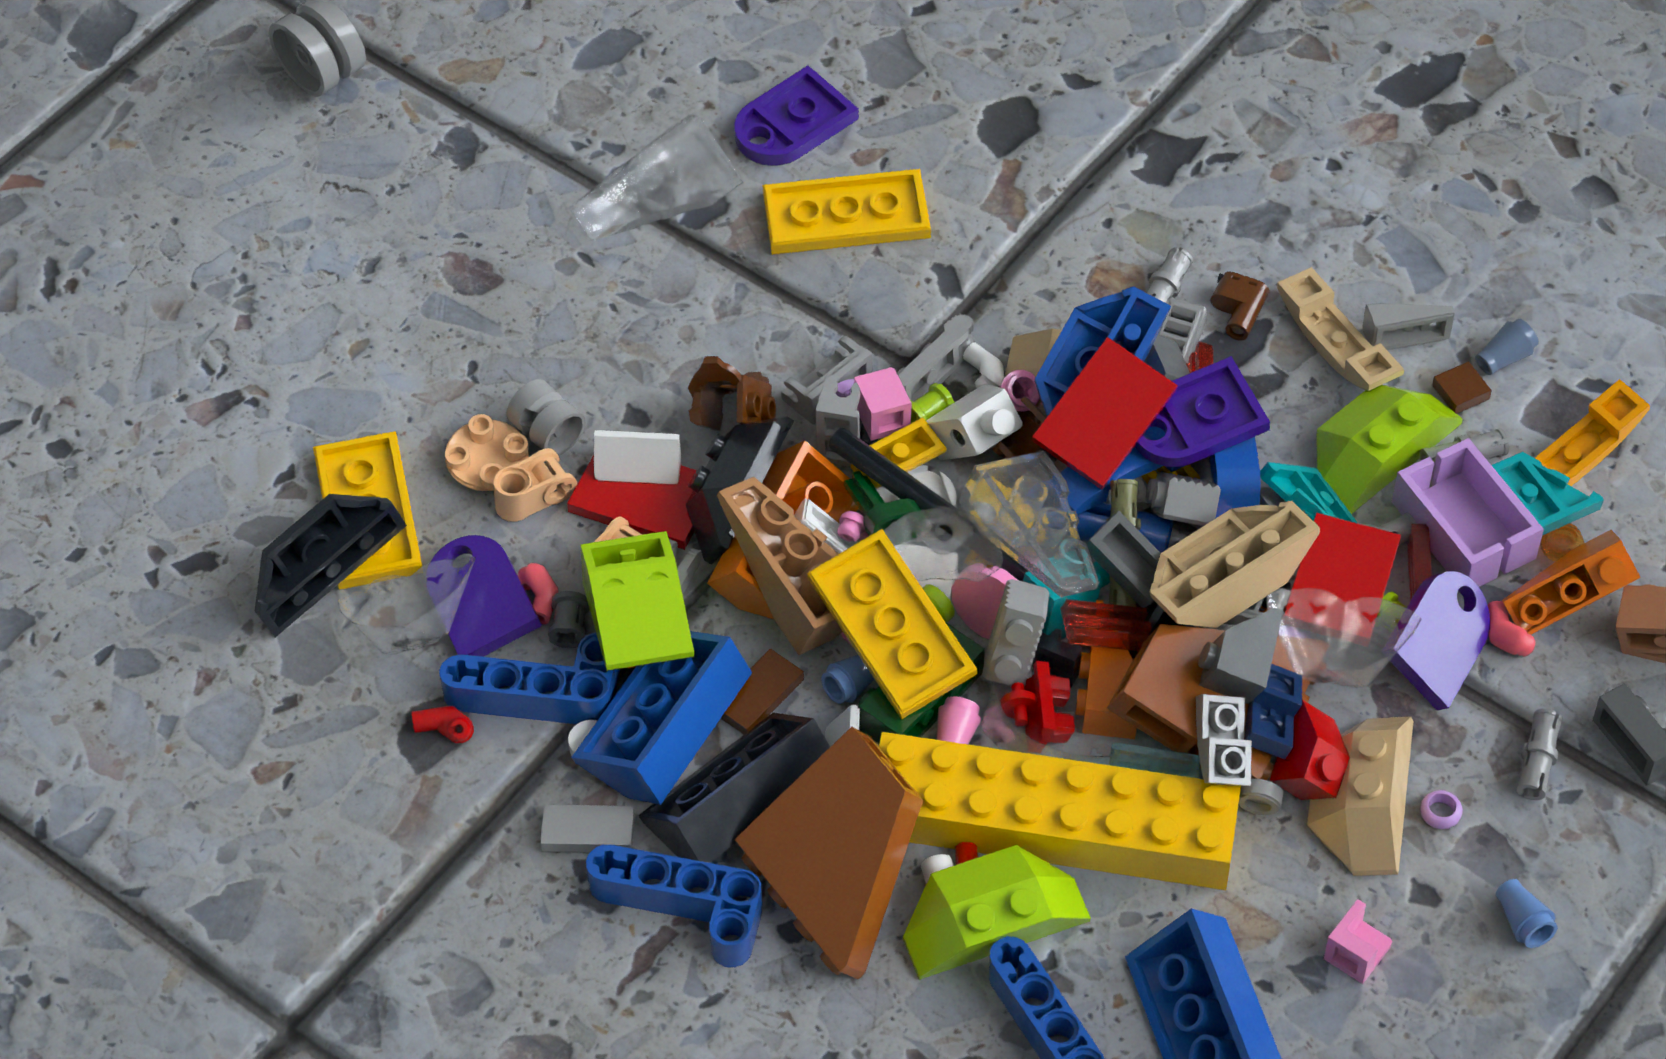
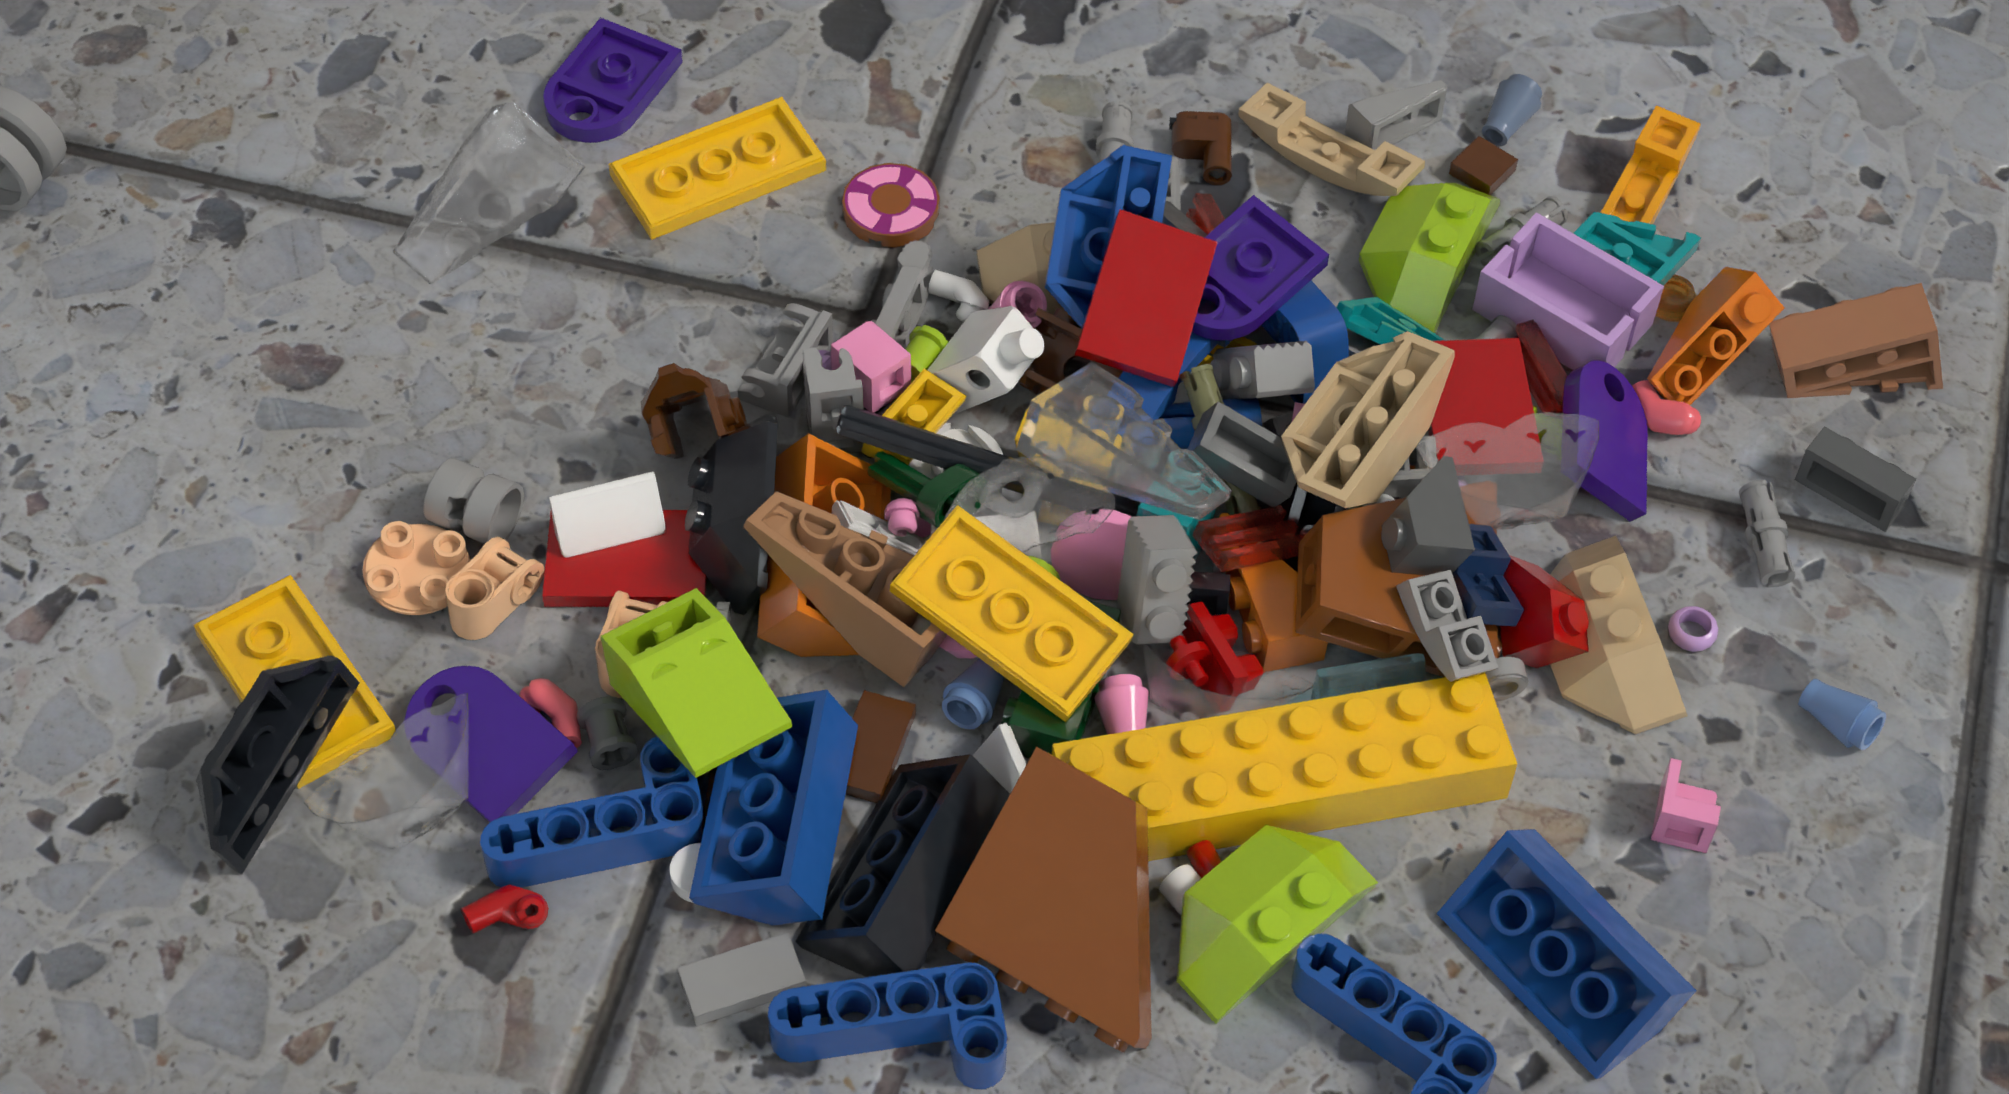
camera: 25 degrees left, 0 degrees up
(966, 280) = (890, 204): none -> tile

